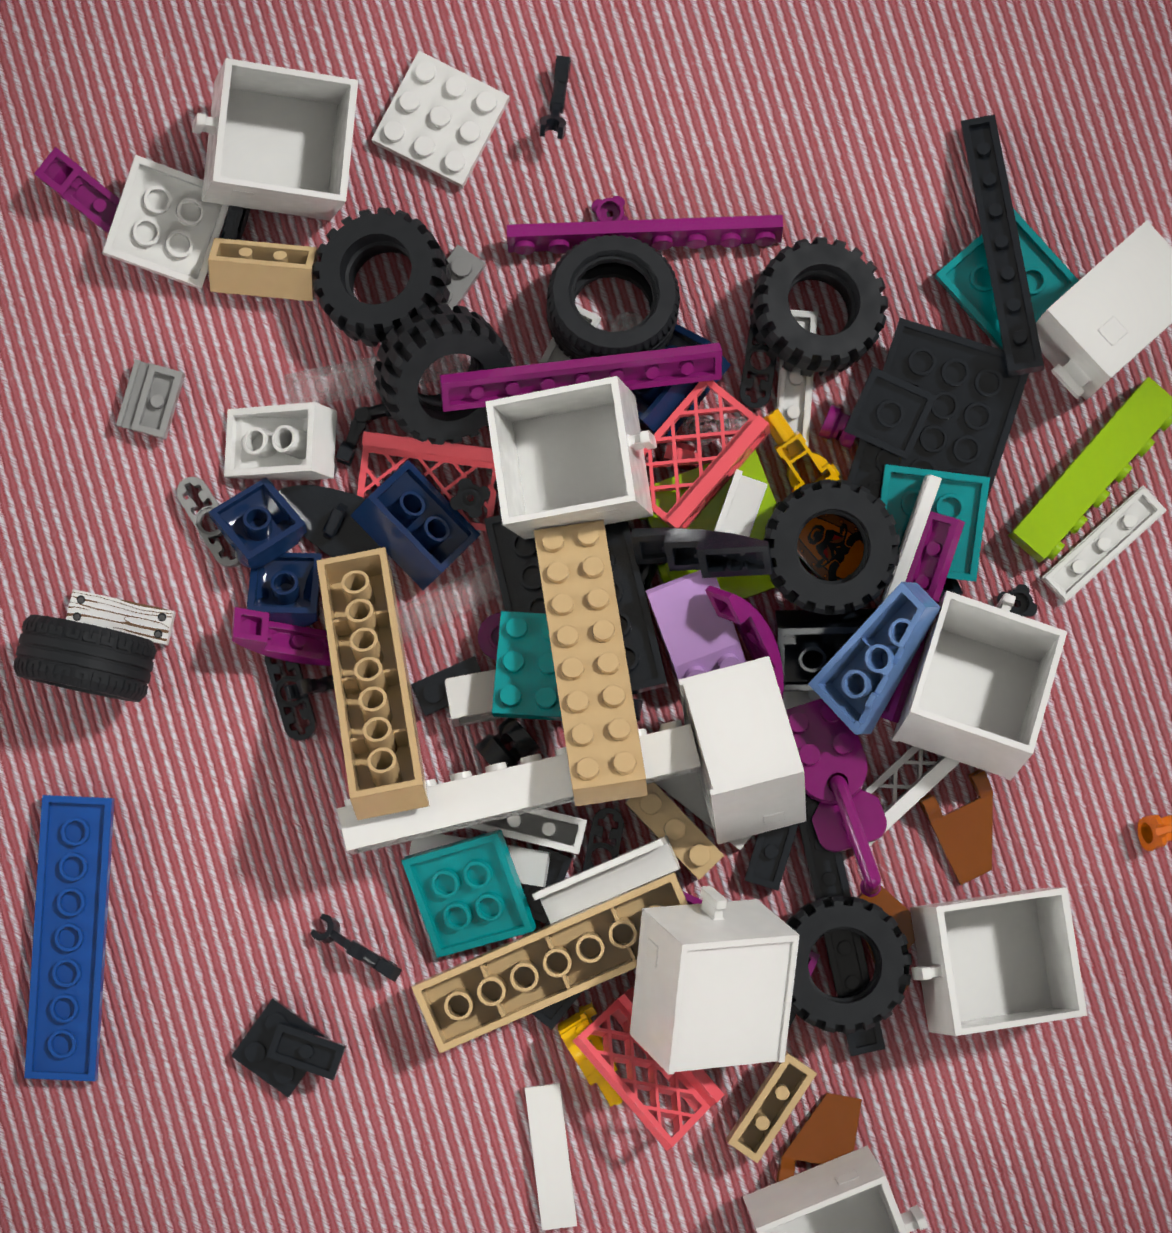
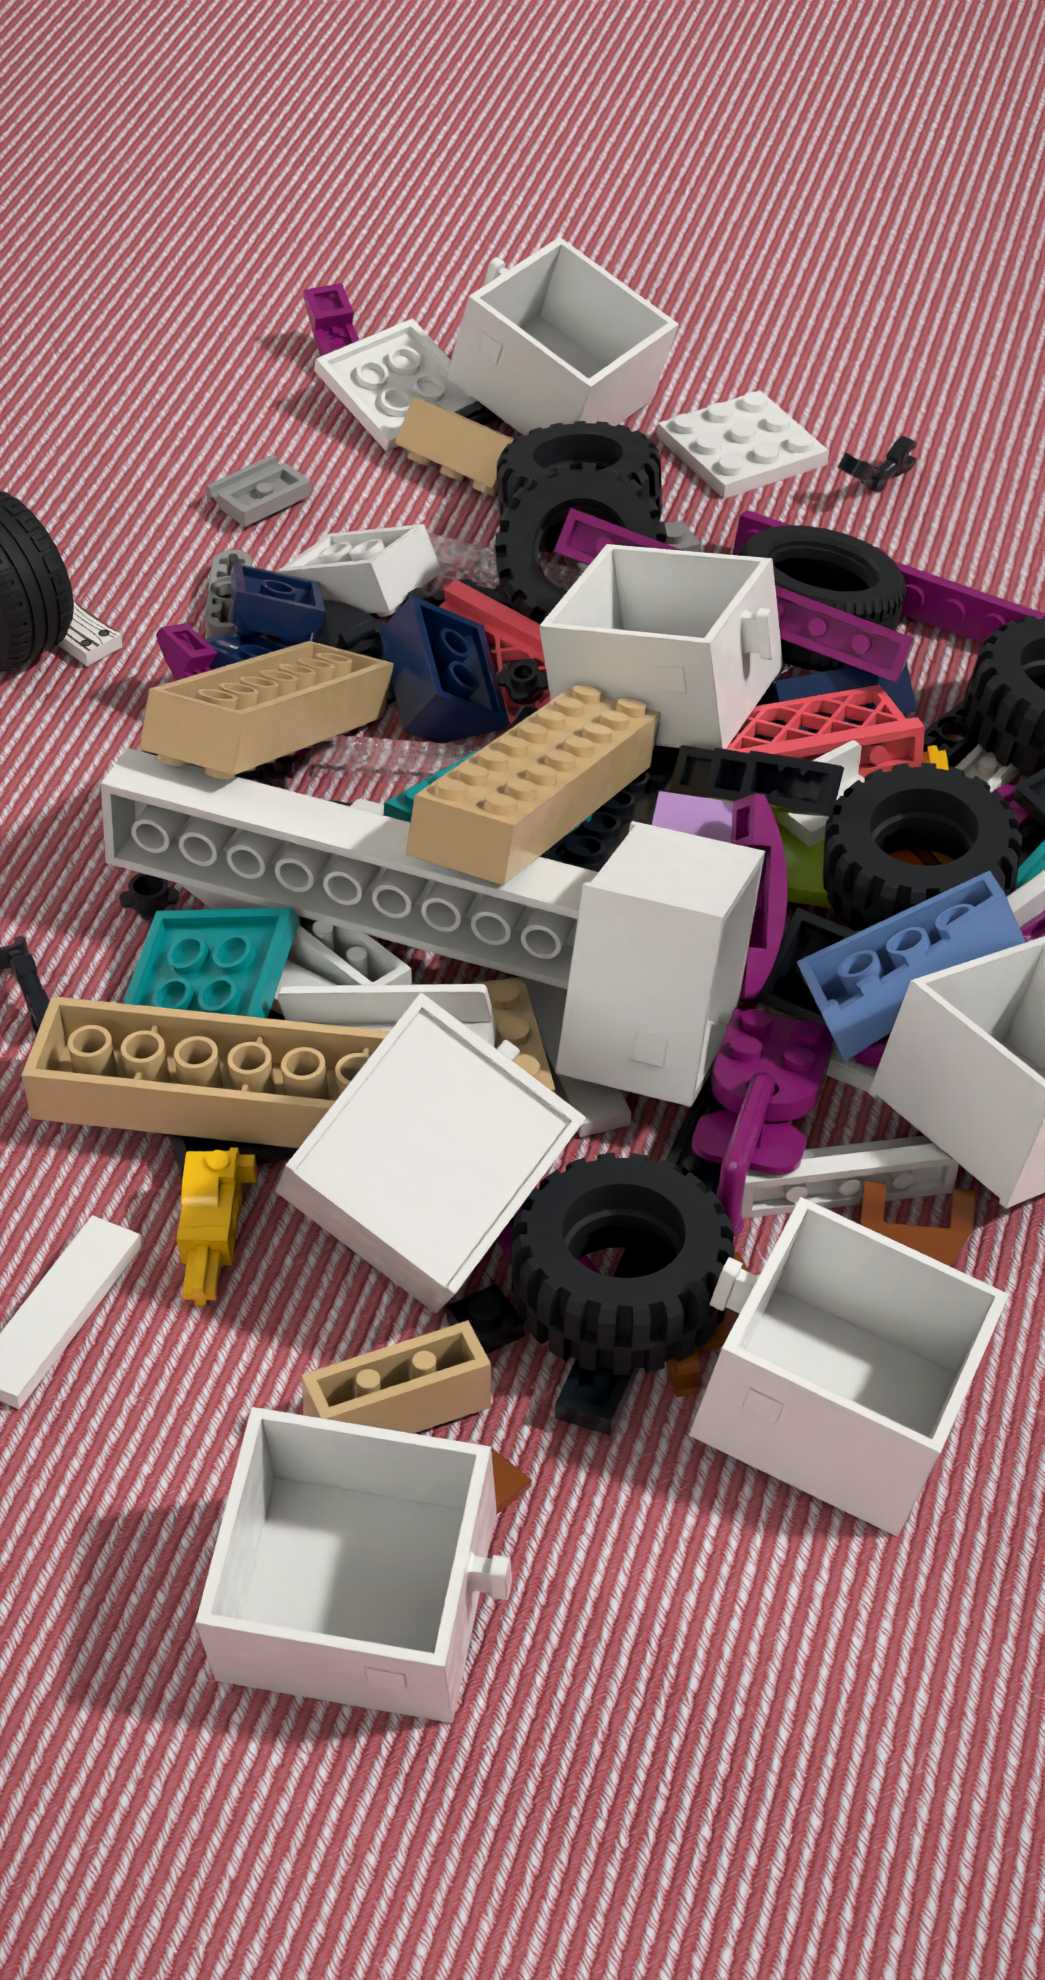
camera: 30 degrees right, 40 degrees down
(692, 1085) = (298, 1252): coral fence -> none
(770, 857) = (634, 1130): black plate -> none

